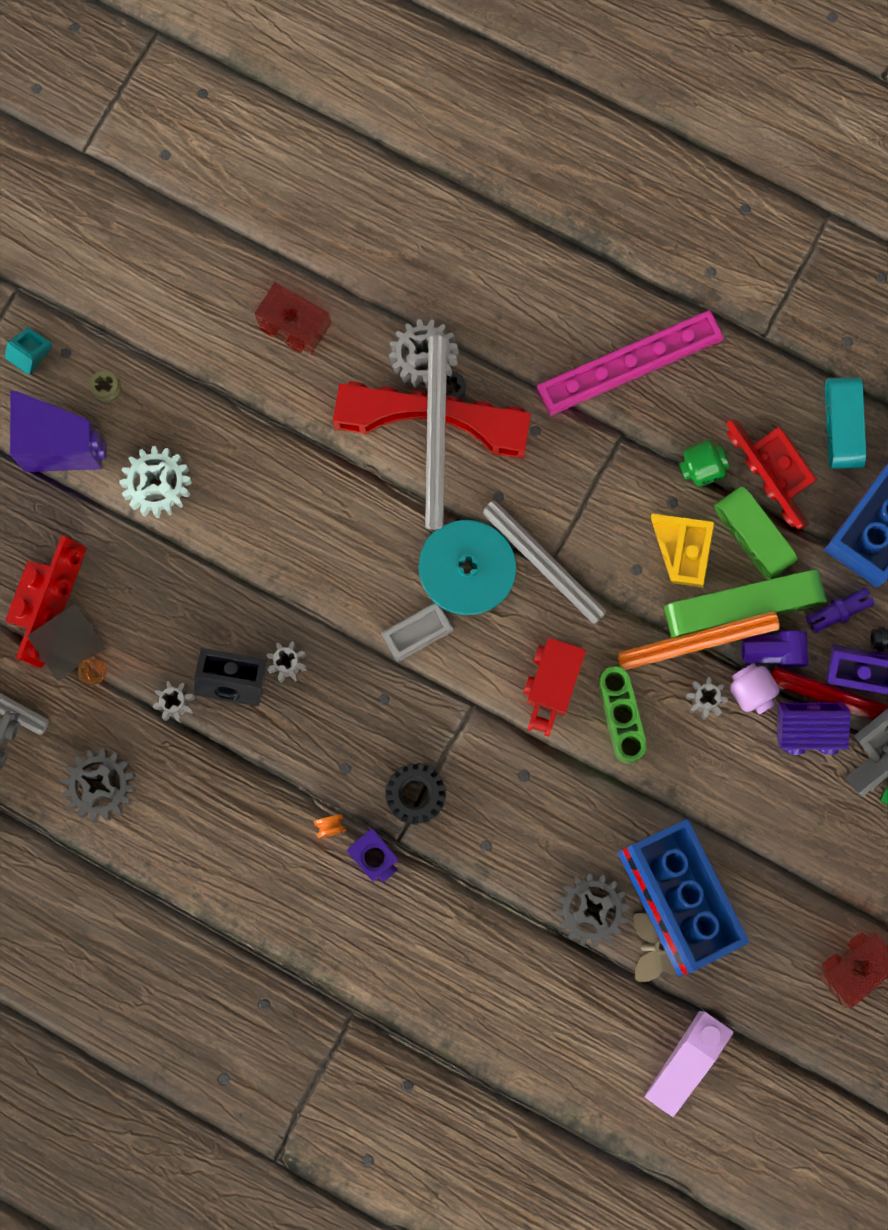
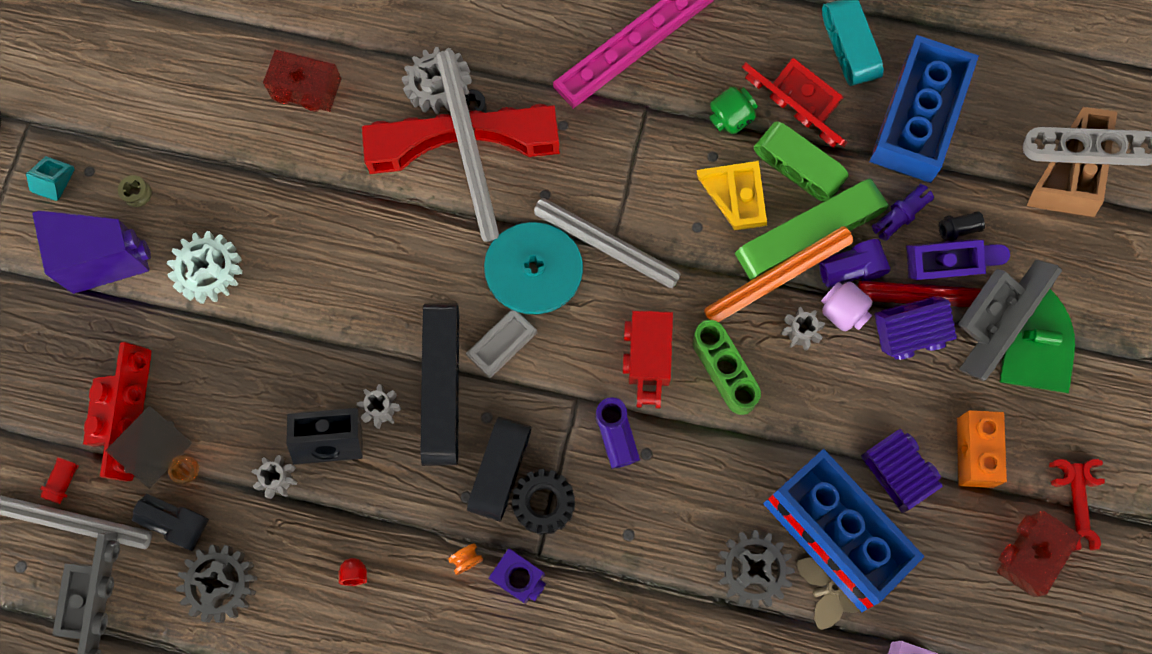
camera: 15 degrees left, 5 degrees down
(76, 721) = (176, 524): none -> black piece
(223, 809) = (352, 572): none -> red hinge
(349, 656) = (440, 384): none -> black beam
(383, 751) = (499, 469): none -> black beam
(501, 753) = (617, 436): none -> dark purple piece
(758, 858) = (902, 470): none -> dark purple brick
(838, 859) = (981, 449): none -> orange brick

